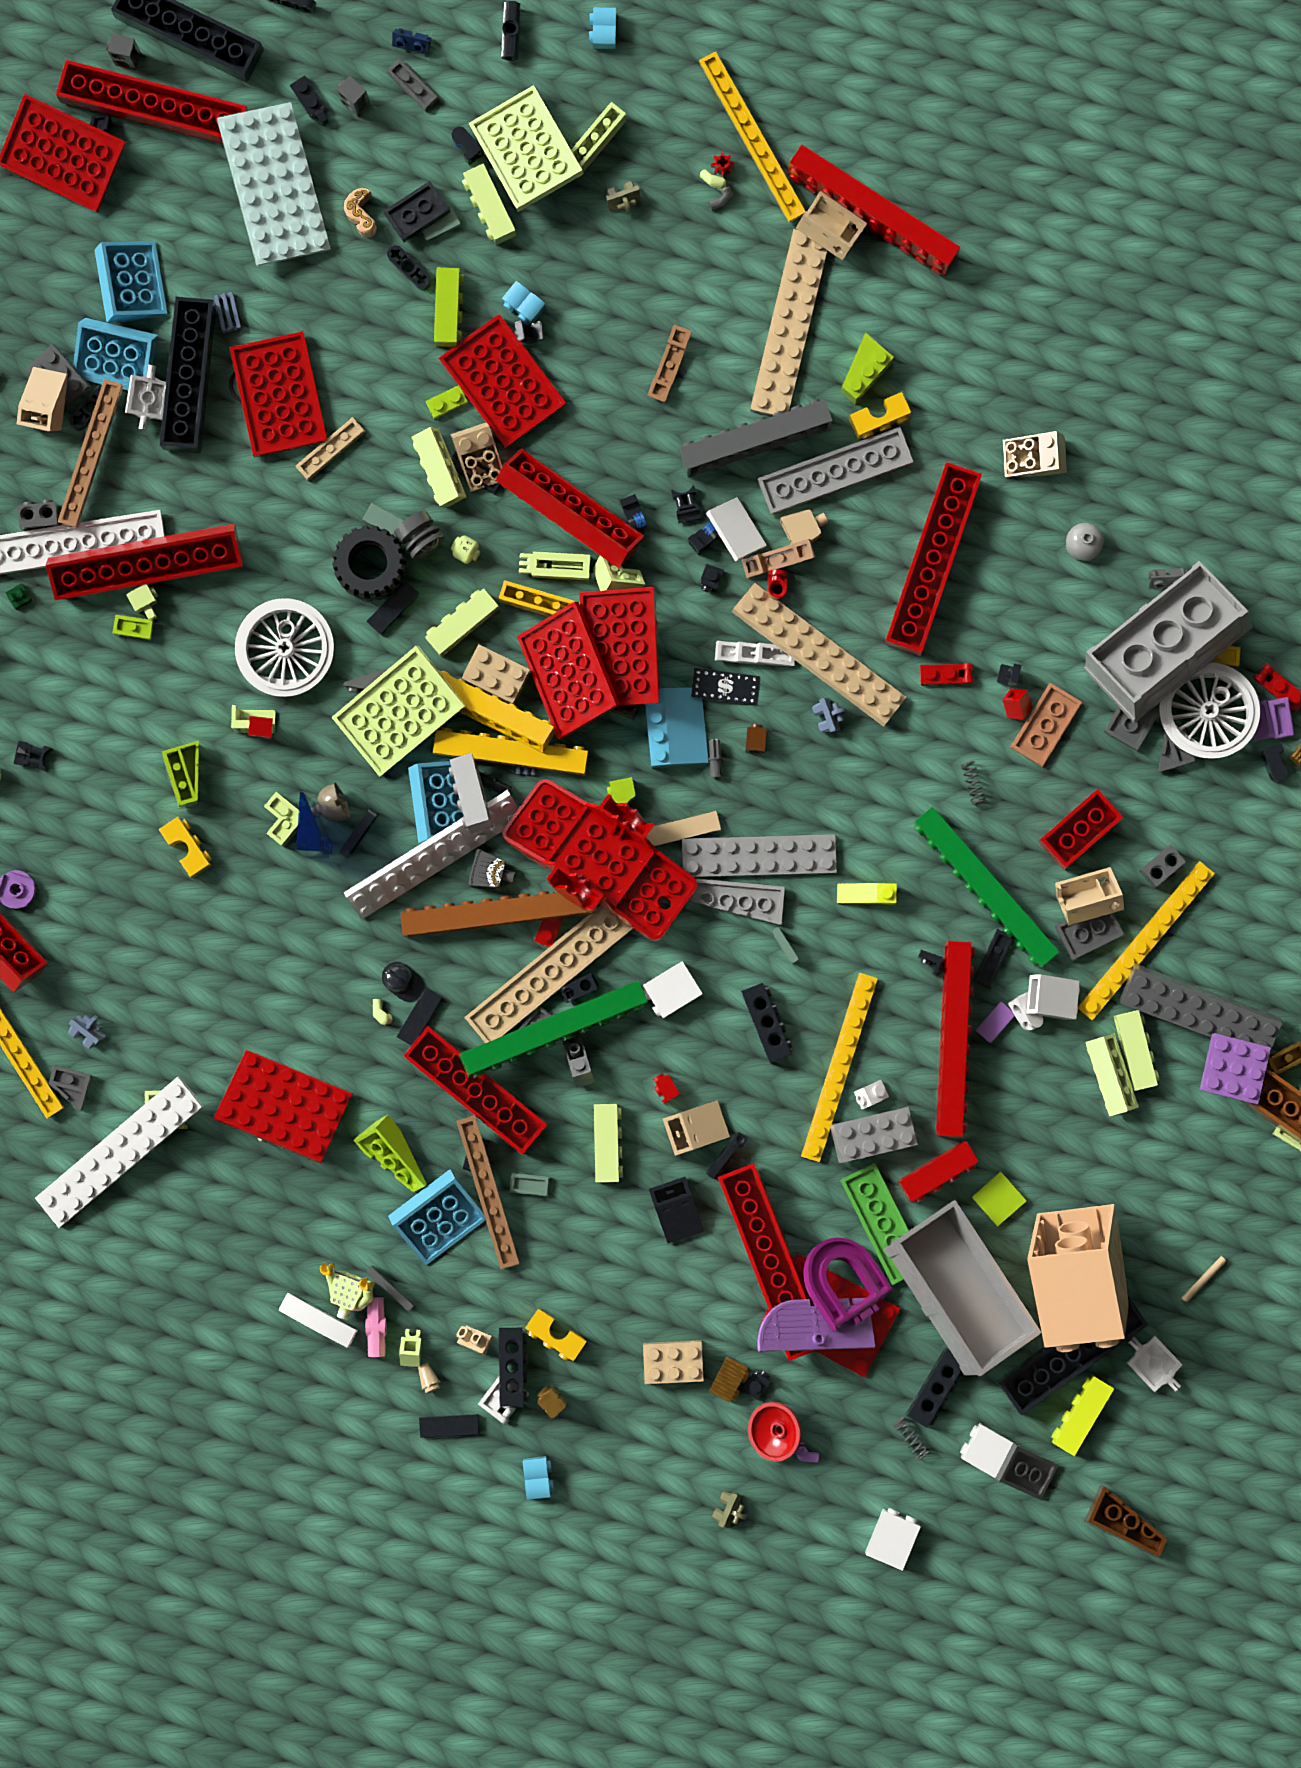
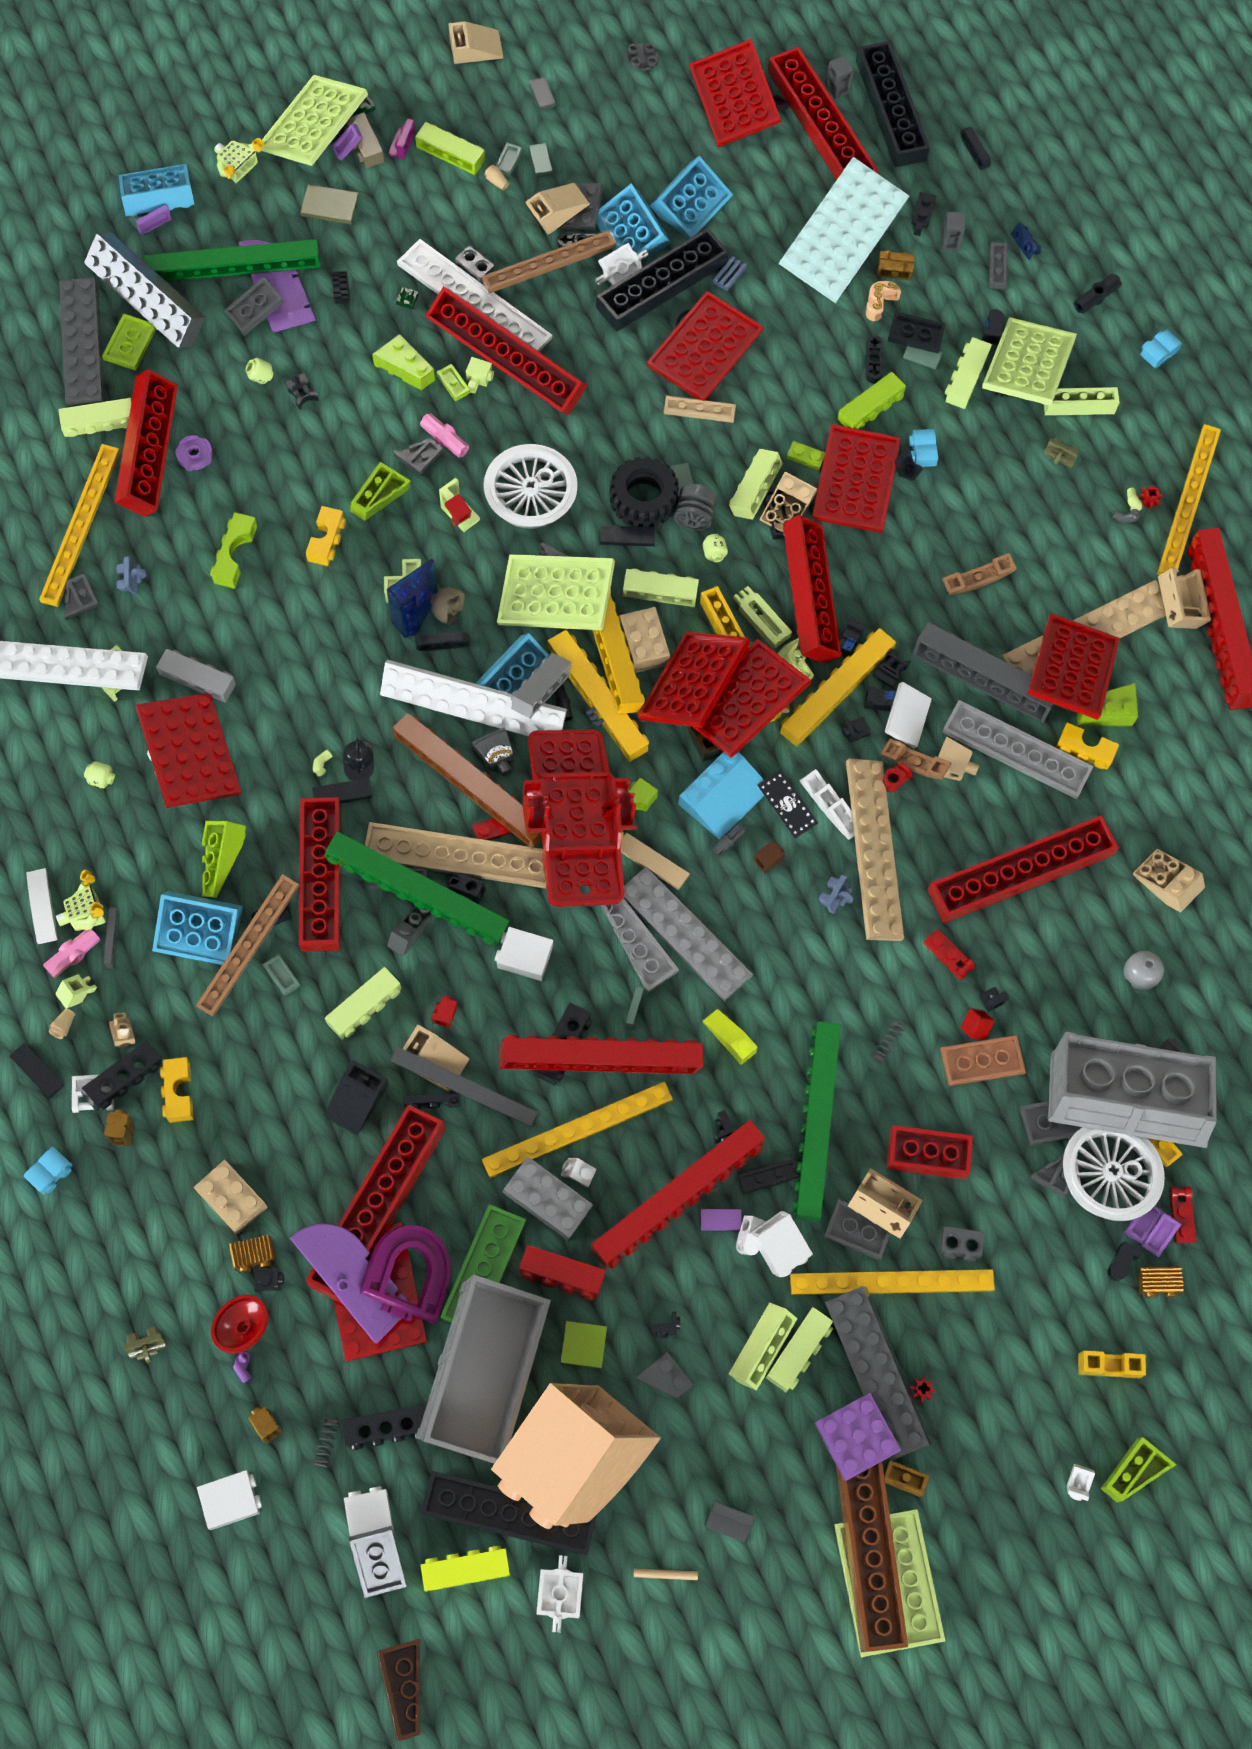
camera: 35 degrees right, 15 degrees down
(80, 651) = (405, 362): none -> lime wedge
(122, 910) = (240, 530): none -> lime arch
(176, 675) = (444, 435): none -> bright pink piece
(177, 711) = (420, 455): none -> dark grey wing
(222, 1048) = (196, 675): none -> light grey brick
(244, 1191) = (99, 774): none -> yellowish green head
(340, 170) = (895, 265): none -> pearl gold brick
(666, 560) = (837, 687): none -> yellow brick
(737, 1124) = (464, 1086): none -> dark grey piece
(806, 1005) = (600, 1055): none -> red brick
(813, 369) = (1073, 666): none -> red plate
(863, 1471) = (265, 1424): none -> pearl gold brick
(1039, 1134) = (663, 1330): none -> black bracket
(1071, 1160) = (666, 1377): none -> dark grey wing
(1208, 1204) = (729, 1522): none -> dark grey panel
(1232, 988) = (926, 1385): none -> red gear

